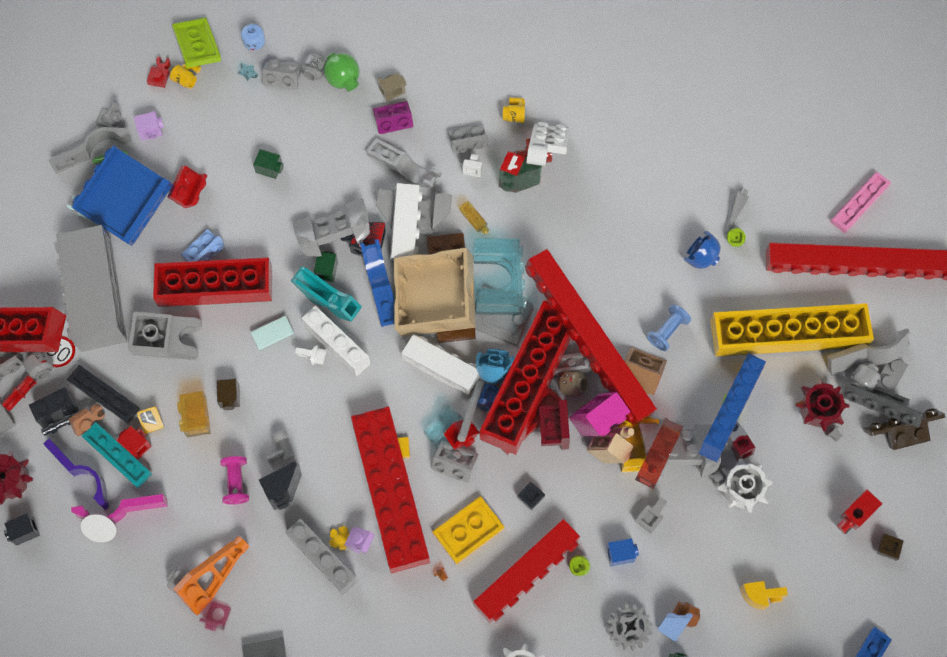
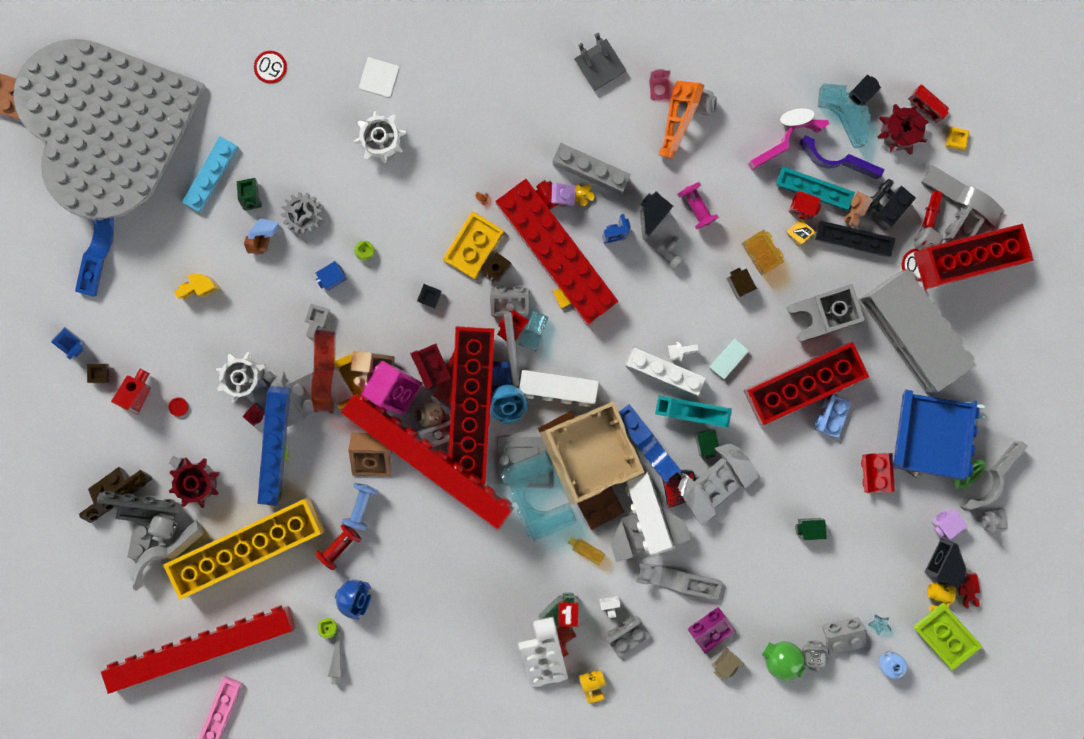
camera: 160 degrees right, 20 degrees up
(46, 506) = (853, 117): none -> clear light blue arch
(168, 93) = (947, 563): none -> black slope
(322, 480) = (617, 233): none -> blue bracket
(375, 551) = (544, 190): none -> red brick
(454, 497) = (496, 267): none -> dark brown brick
(526, 571) = (408, 226): red brick -> none
(704, 299) = (338, 546): none -> red hose
(817, 486) = (178, 406): none -> red piece
(912, 587) = (68, 343): none -> blue bracket

